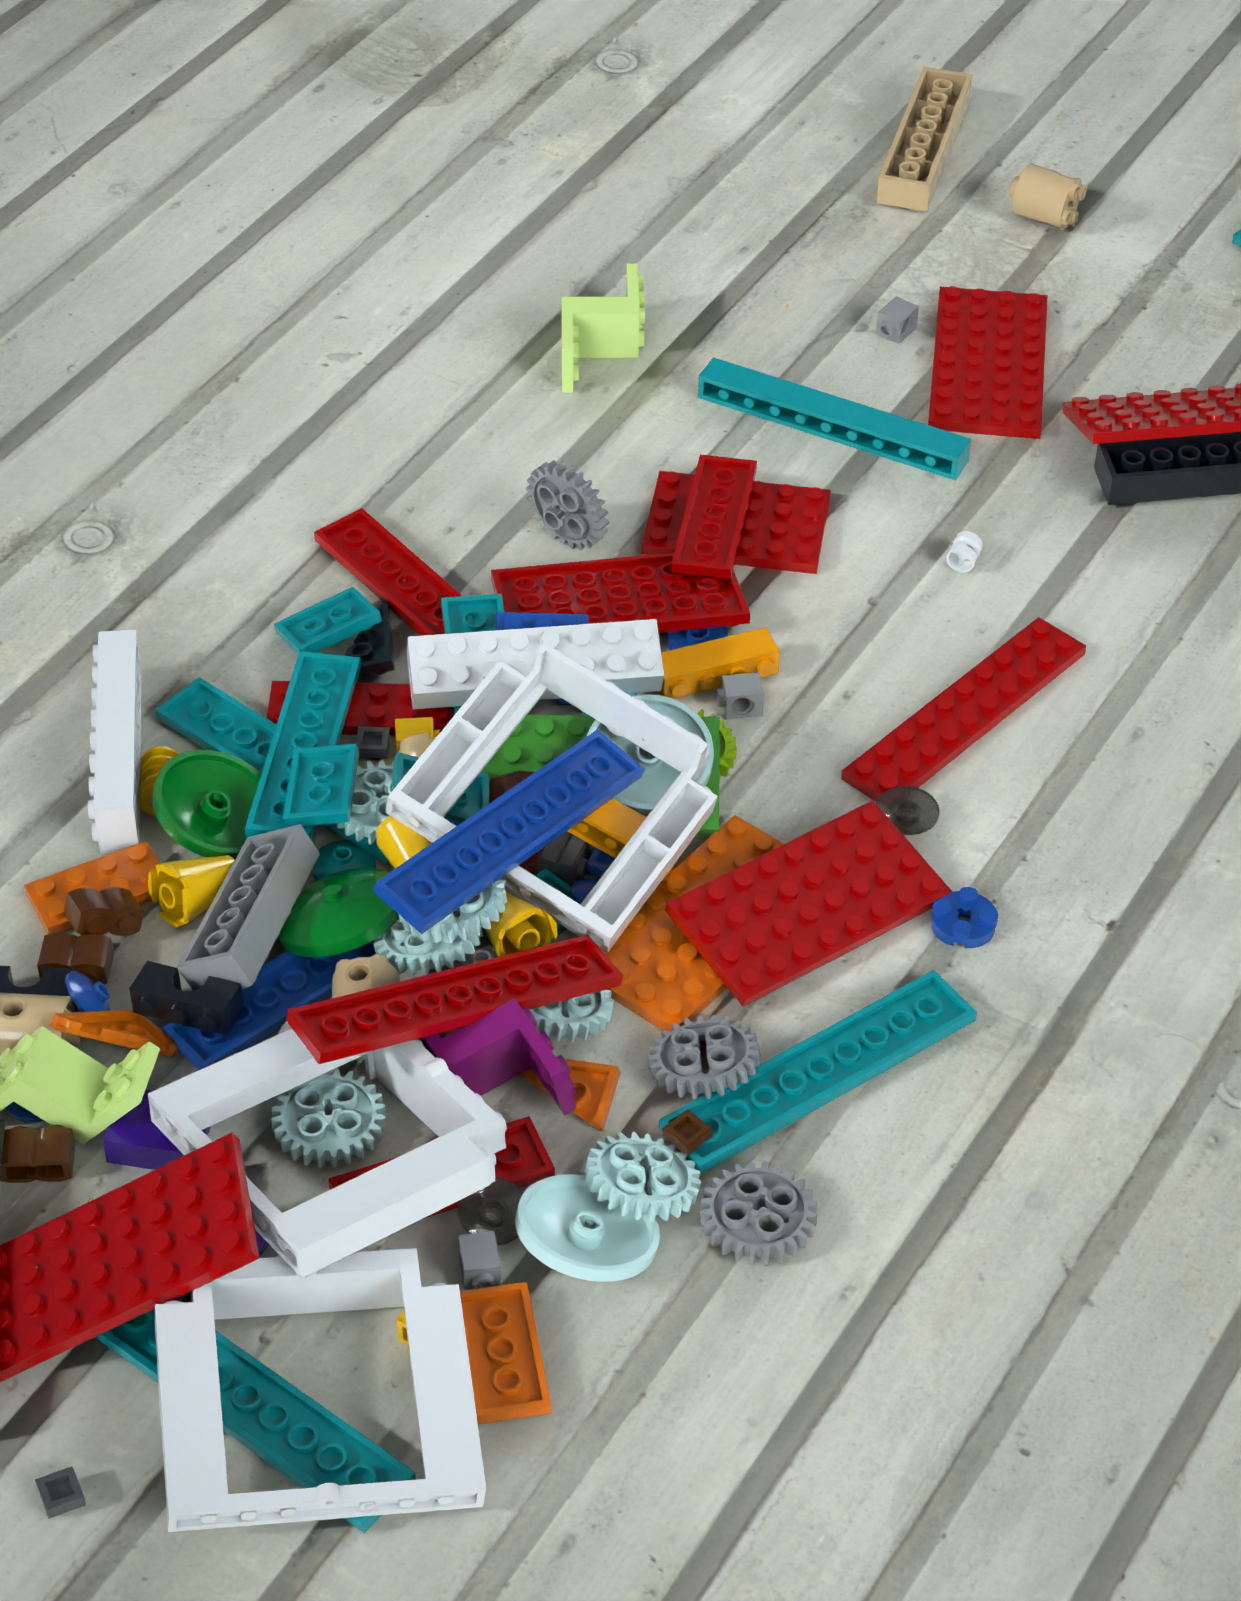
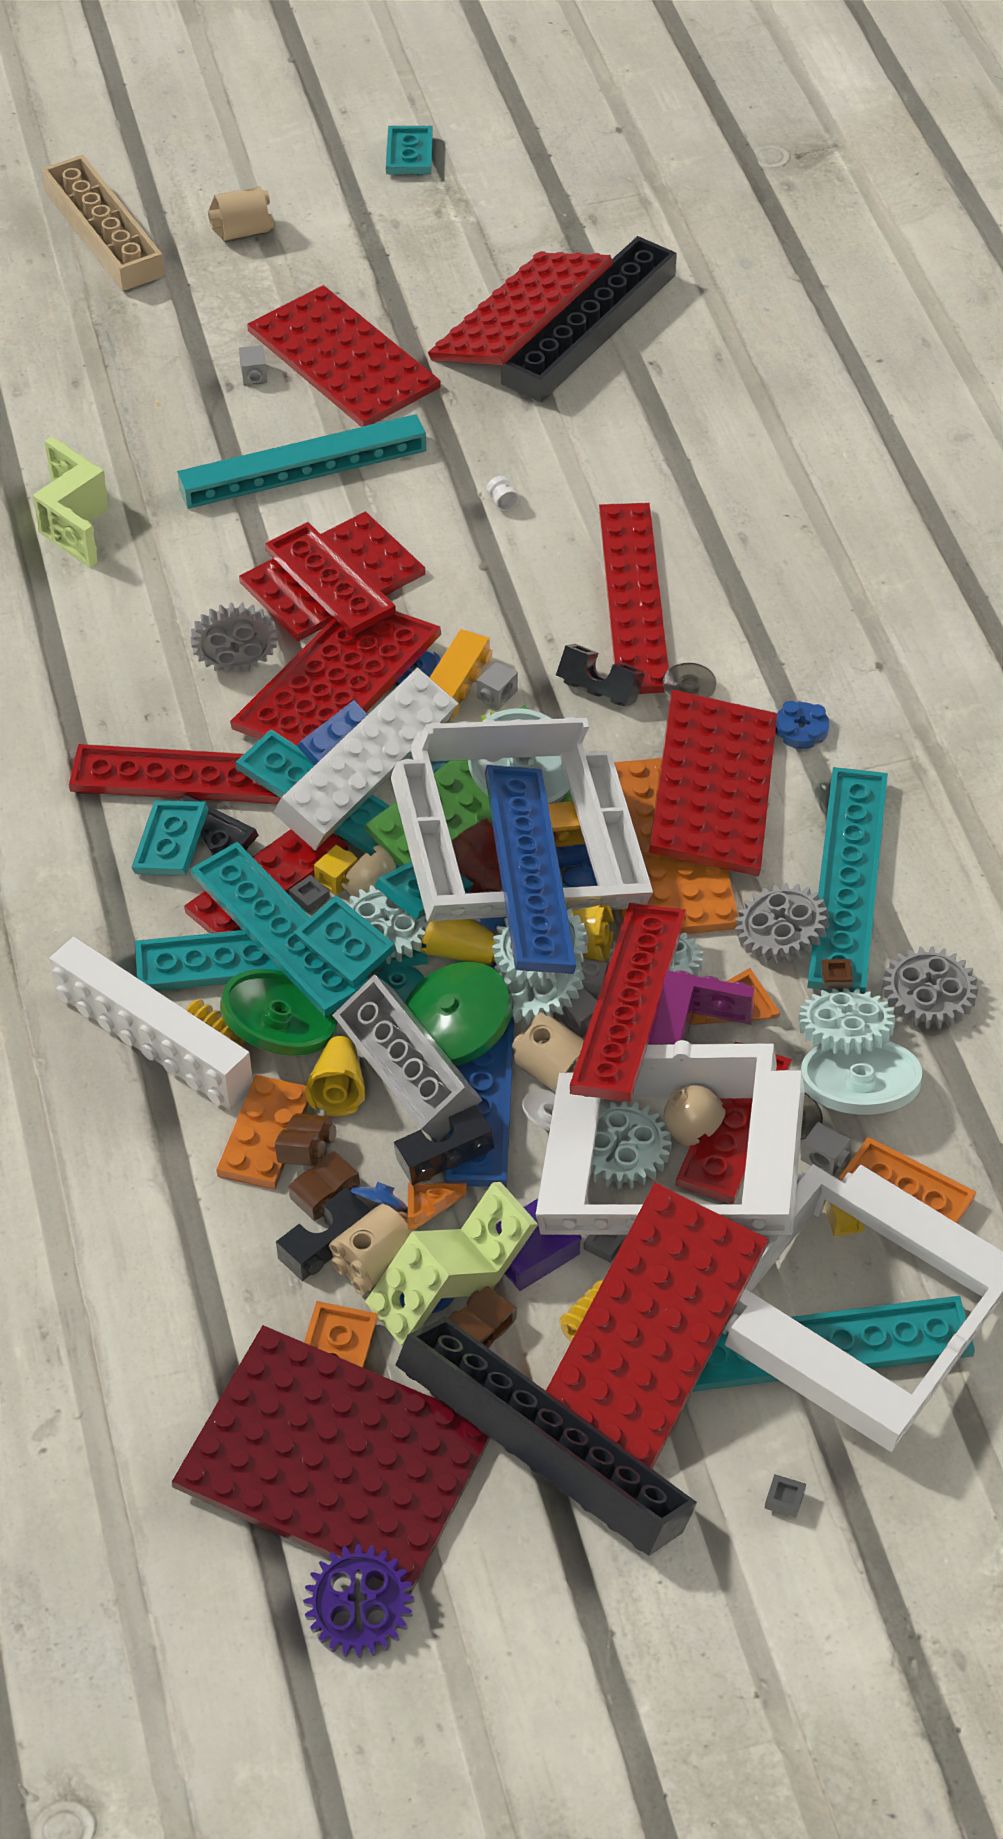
camera: 45 degrees left, 5 degrees up
(402, 1131) = (692, 1113): none -> tan cylinder
(839, 762) = (579, 668): none -> black arch

